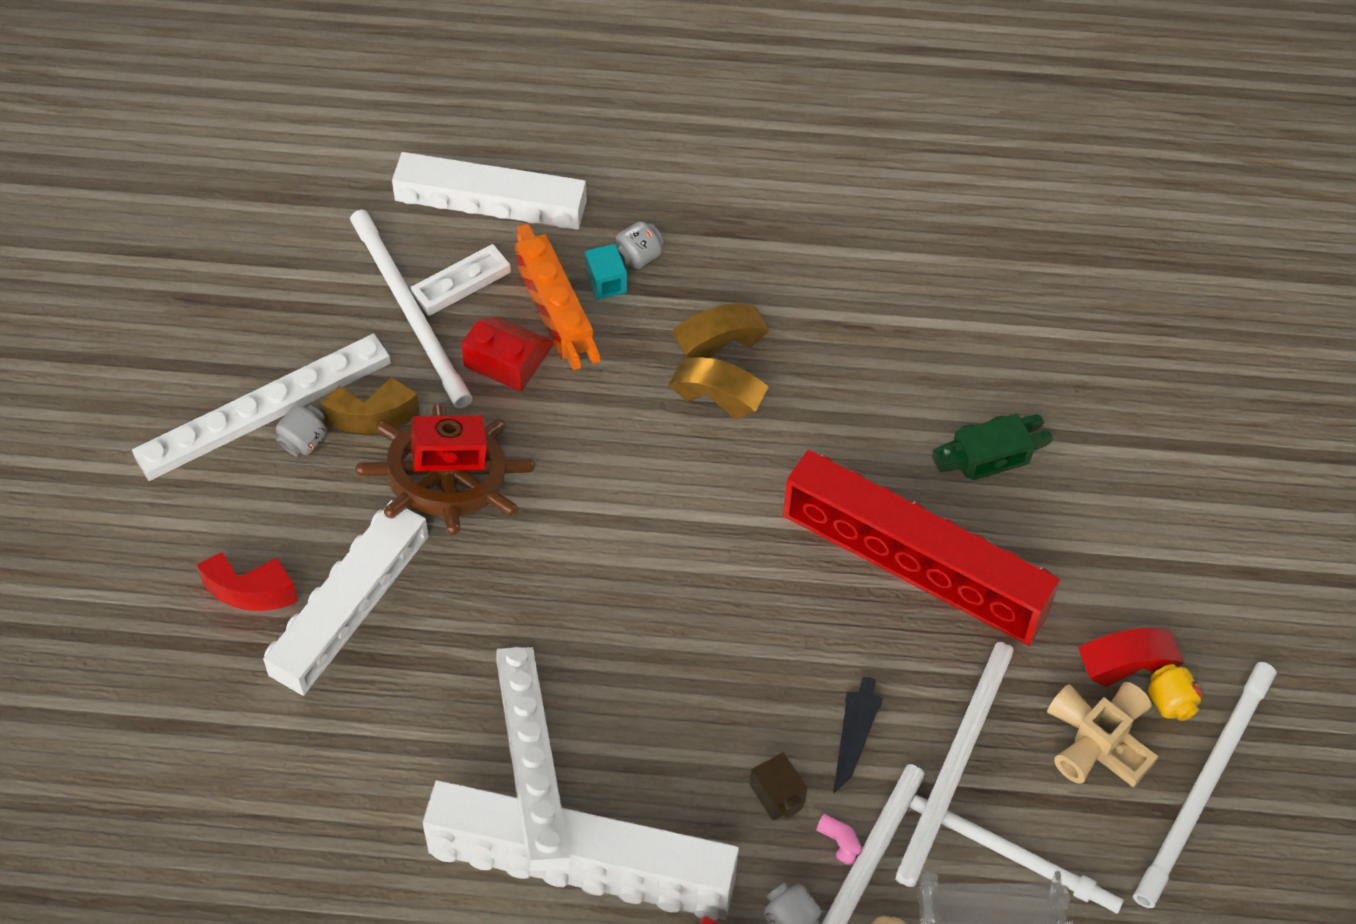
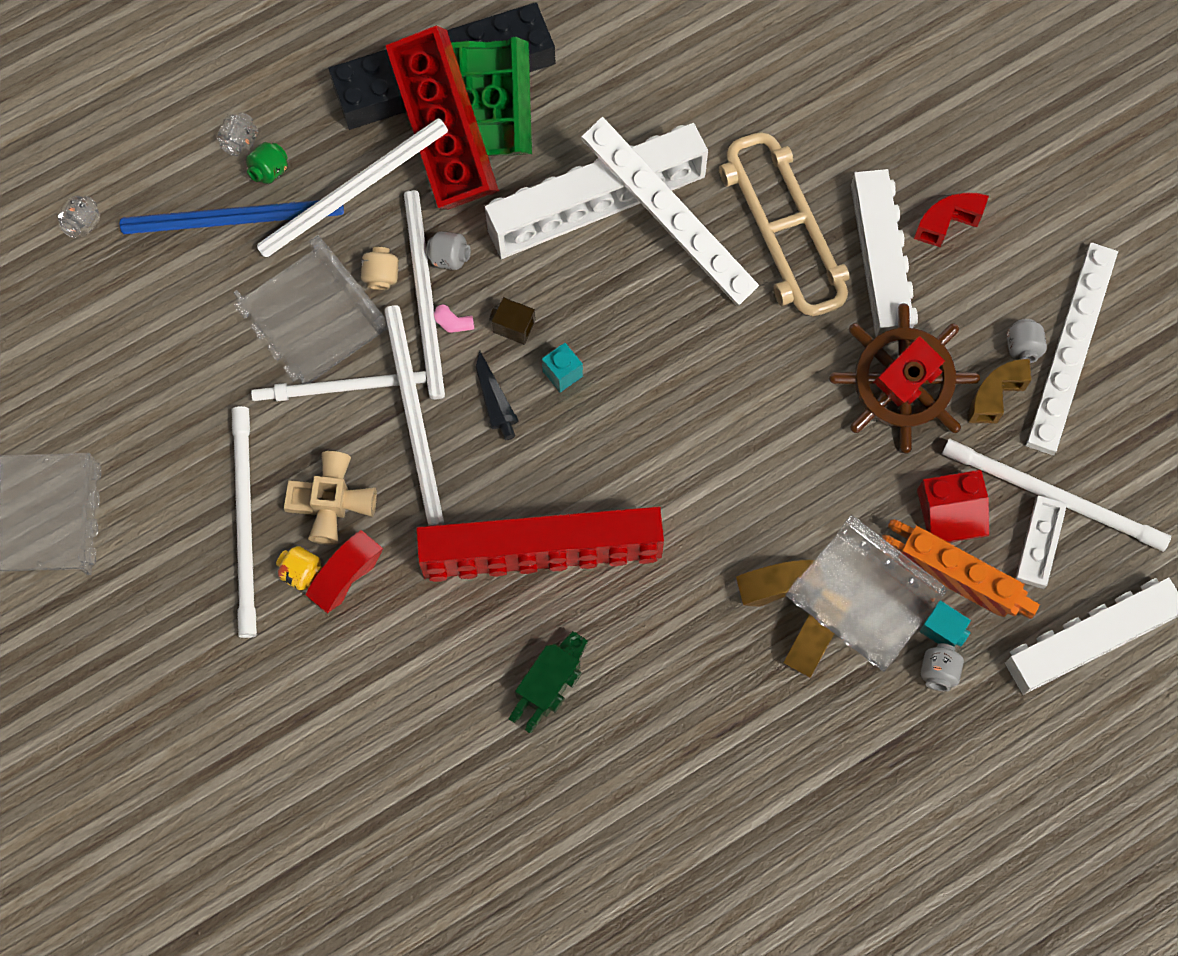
camera: 145 degrees right, 15 degrees up
(412, 782) = (788, 290): none -> tan bar
(657, 325) = (867, 593): none -> clear panel
(765, 701) = (562, 367): none -> teal brick

